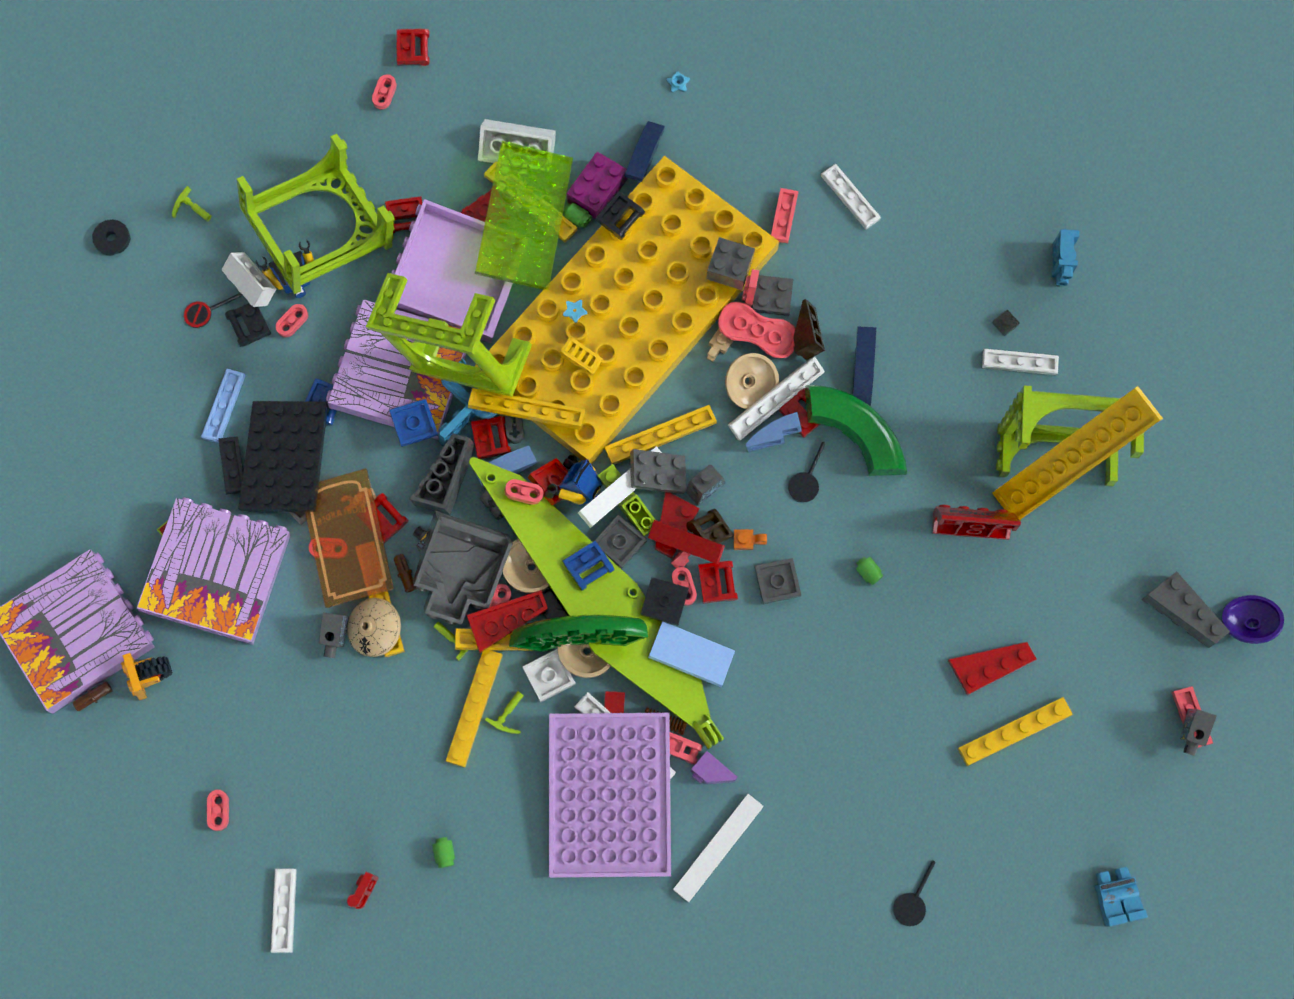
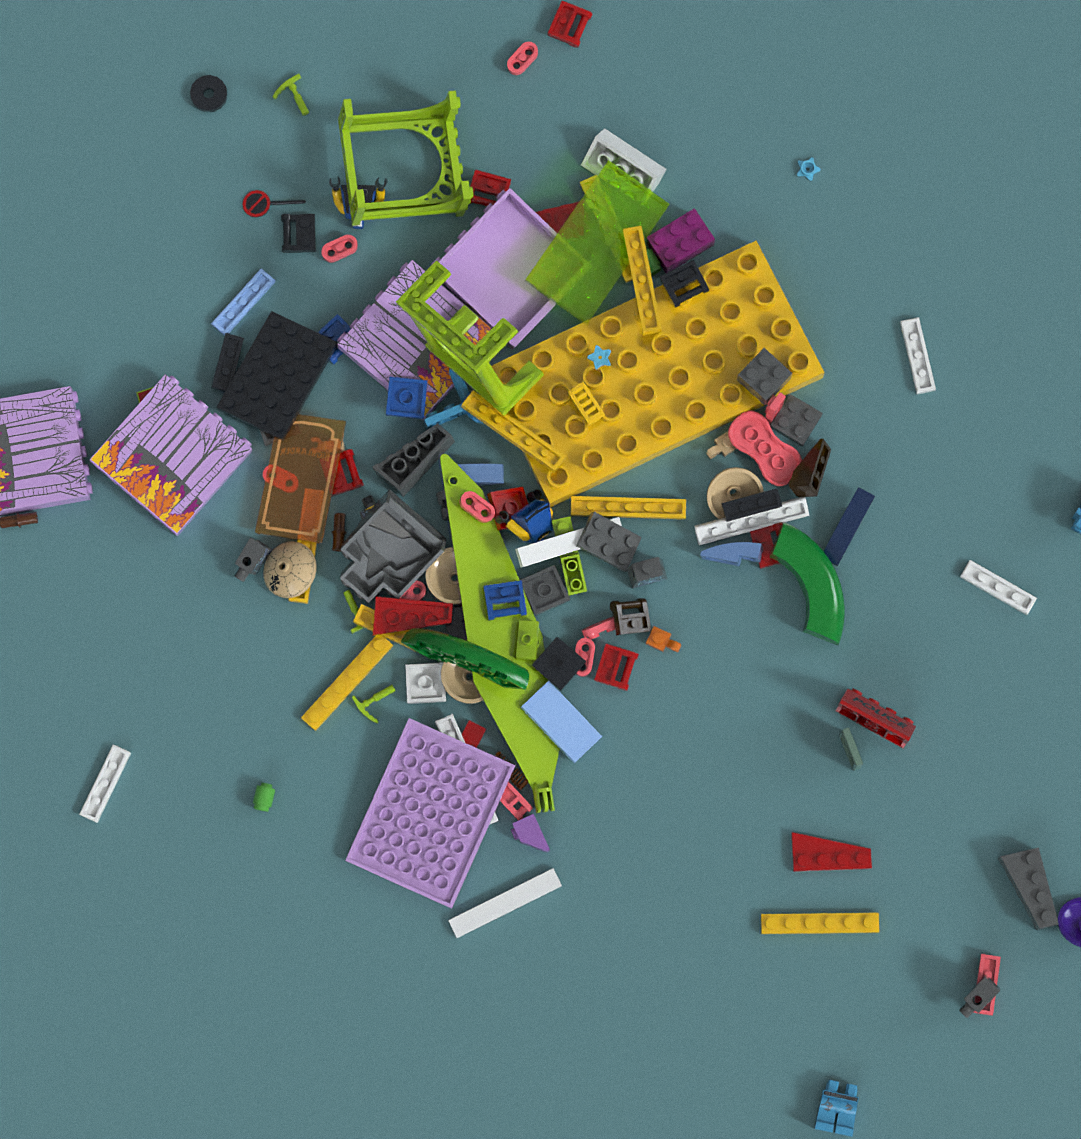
camera: 30 degrees right, 5 degrees up
(144, 673) = (72, 521): plate -> none
(217, 810) = (85, 671): coral plate -> none
(248, 279) = (316, 192): white brick -> none
(365, 887) = (183, 795): red plate -> none
(484, 437) = (466, 438): red plate -> none
(509, 429) = (492, 441): dark grey beam -> none
(581, 228) = (642, 280): none -> yellow plate
(626, 592) = (527, 640): none -> lime plate
(644, 151) = (740, 226): dark blue slope -> none
(675, 513) = (597, 600): red wing -> none
(686, 541) = (602, 618): red tile -> none
(771, 382) = (751, 505): none -> black plate
(777, 581) = (671, 691): dark grey plate -> none
(784, 215) = (844, 347): coral plate -> none
(803, 485) = (738, 614): black piece -> none
(869, 570) = (758, 719): bright green brick -> none
(909, 907) = (649, 1032): black piece -> none
(966, 559) = (851, 749): none -> sand green tile
(1006, 322) = (1004, 544): clear smoke plate -> none
(1021, 429) = (964, 651): lime arch -> none
(1078, 453) = (988, 701): yellow plate -> none

